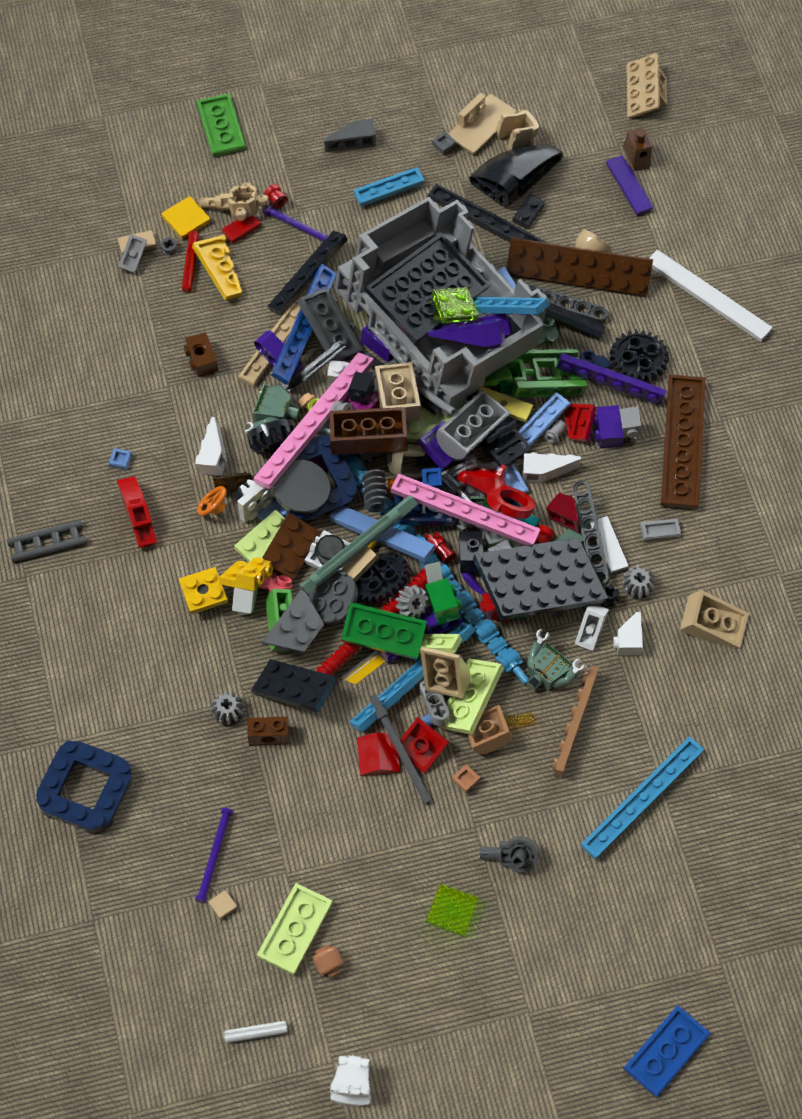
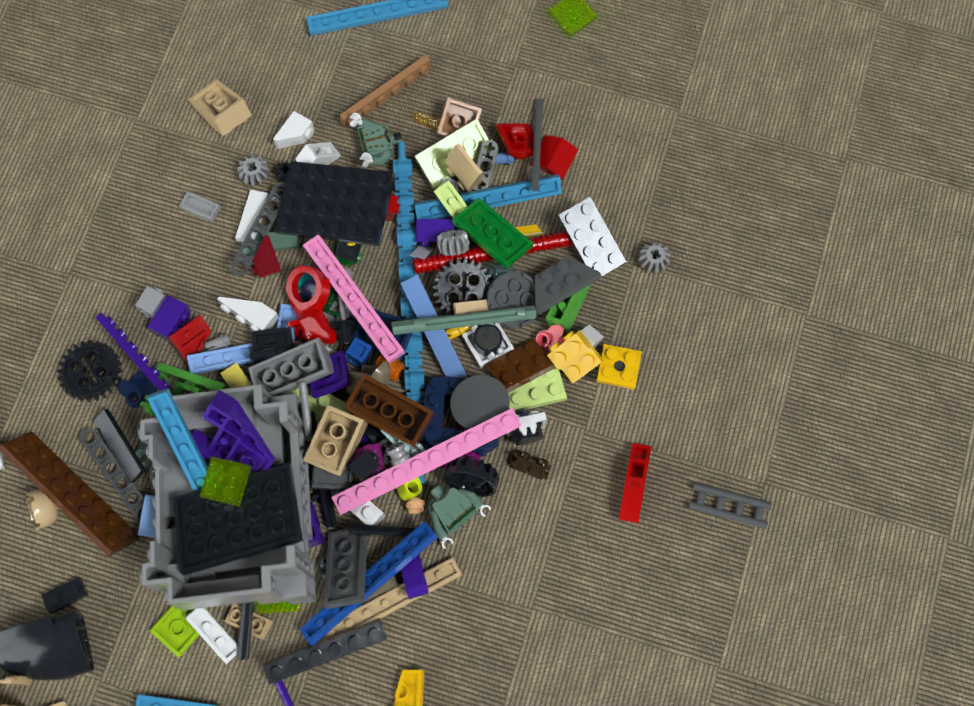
camera: 150 degrees left, 10 degrees up
(89, 819) = (787, 276): dark blue plate -> none
(120, 459) = (620, 552): medium blue tile -> none
(198, 345) = (476, 629): reddish brown brick -> none
(201, 897) = (755, 125): dark purple bar -> none
(212, 453) = (533, 501): white slope -> none
(214, 501) = (561, 447): orange piece -> none
(222, 904) = (741, 112): tan tile -> none
(255, 1032) = (766, 14): white axle -> none
(268, 731) = (632, 218): reddish brown brick -> none
(294, 929) = (697, 64): yellowish green plate -> none
(328, 960) = (686, 28): nougat head -> none
(374, 491) = (415, 366): dark grey piece -> none
(441, 548) = (391, 293): red piece -> none
(443, 601) = (426, 229): green brick -> none
(465, 778) = (500, 98): nougat plate -> none
(470, 544) = (370, 270): black brick -> none
(472, 582) = (386, 259): dark purple bar -> none
(481, 216) = (111, 609): black tile -> none
(513, 853) = (501, 23): dark grey pin -> none
(546, 534) = (297, 254): red wheel -> none
(683, 442) = (117, 270): reddish brown plate -> none

